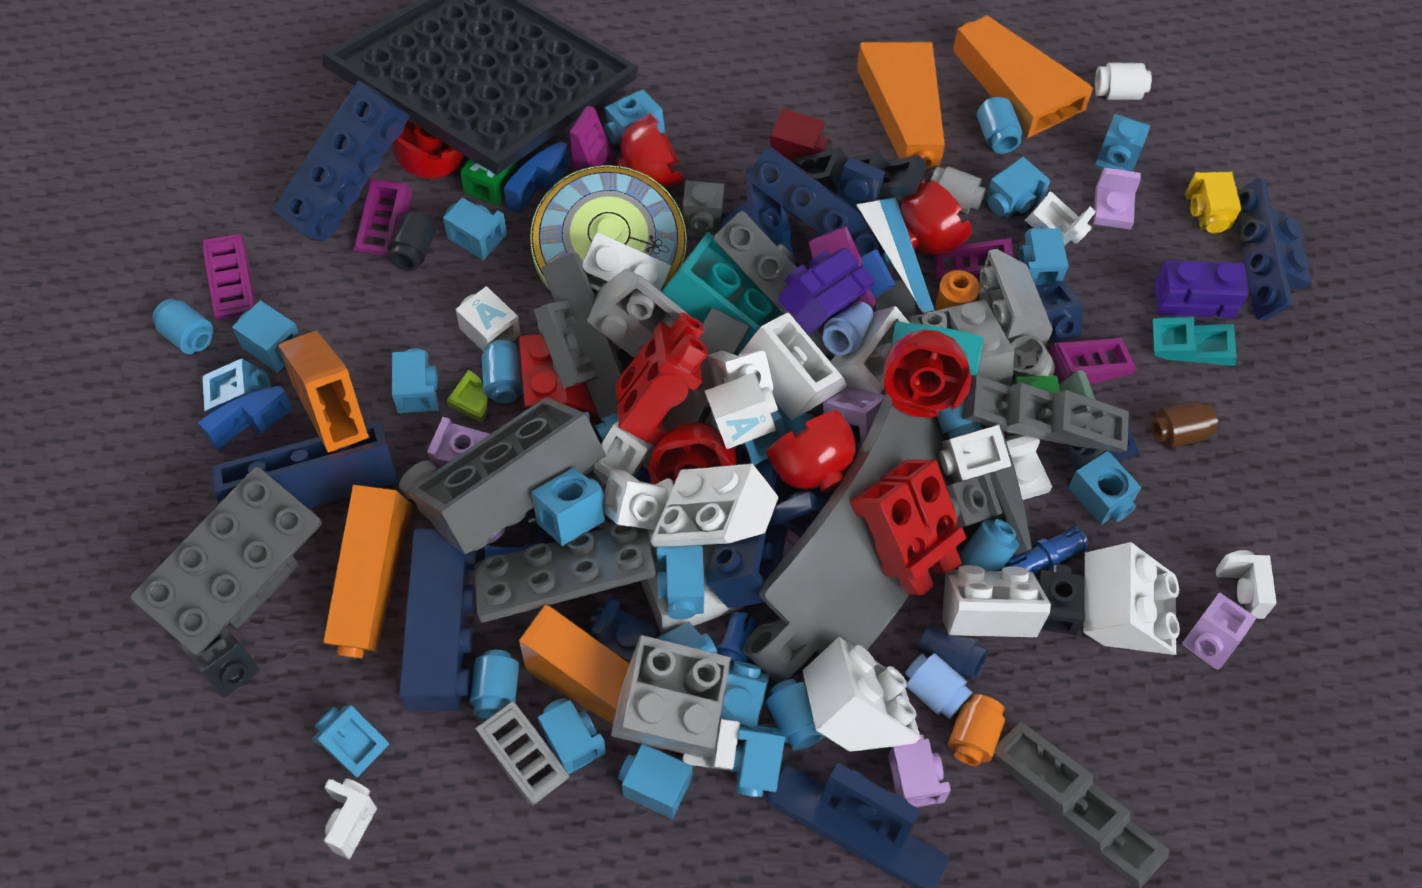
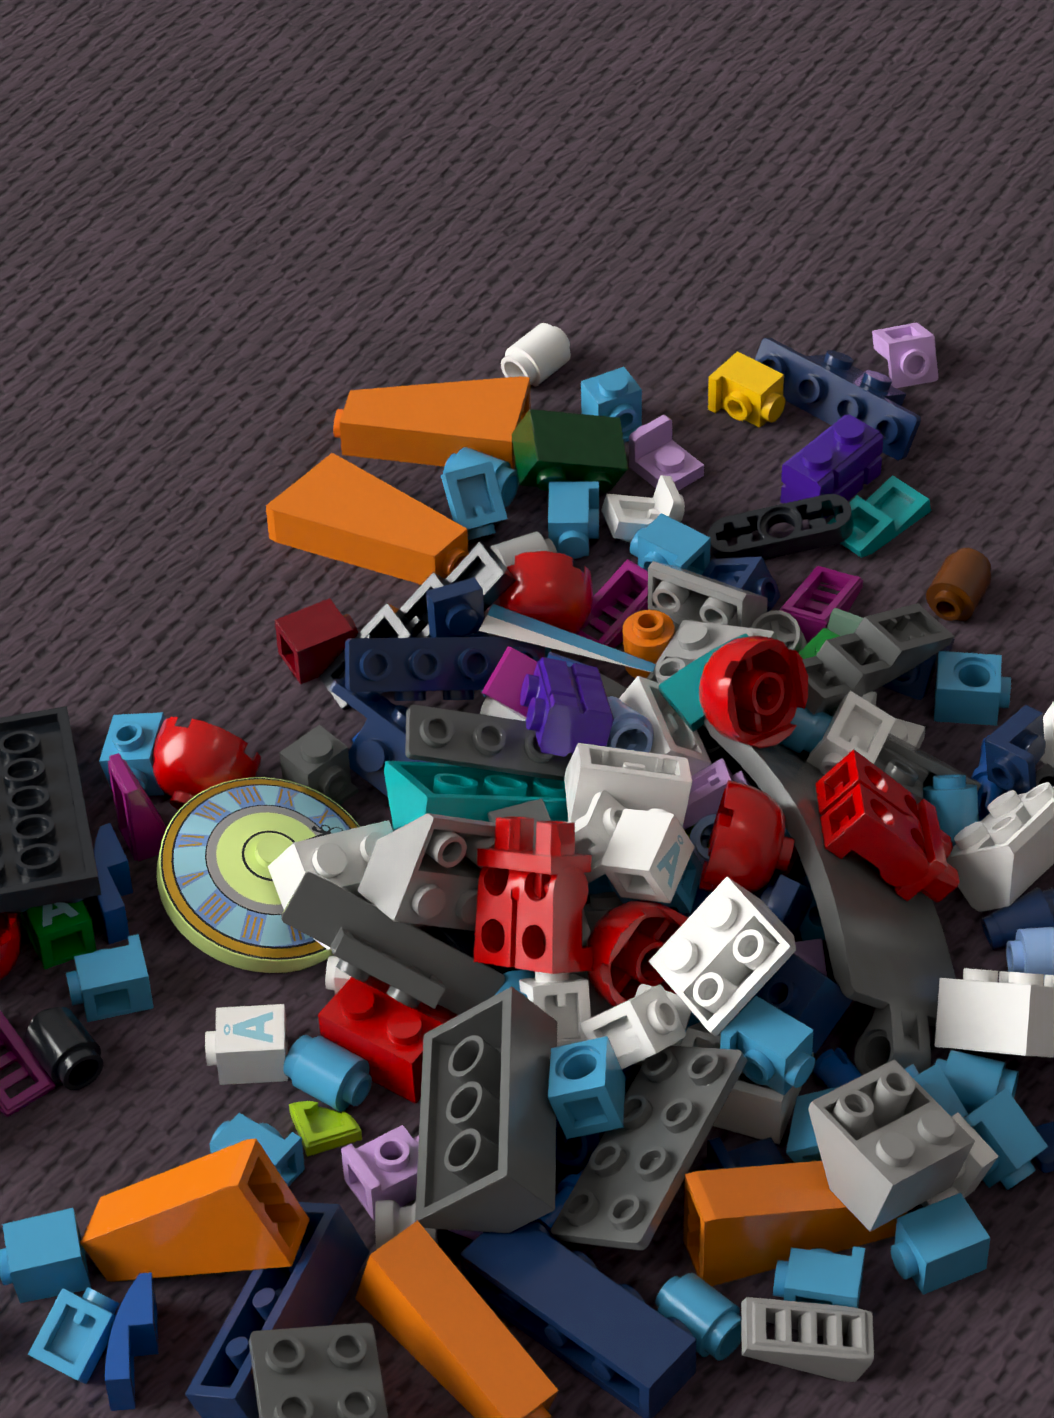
camera: 45 degrees left, 15 degrees down
(971, 132) = (475, 499): none -> dark azure bracket
(1058, 149) = (569, 449): none -> dark green brick
(1065, 549) = (1016, 750): none -> dark blue bracket
(1132, 313) = (793, 513): none -> black beam
(1344, 260) = (909, 354): none -> lavender bracket

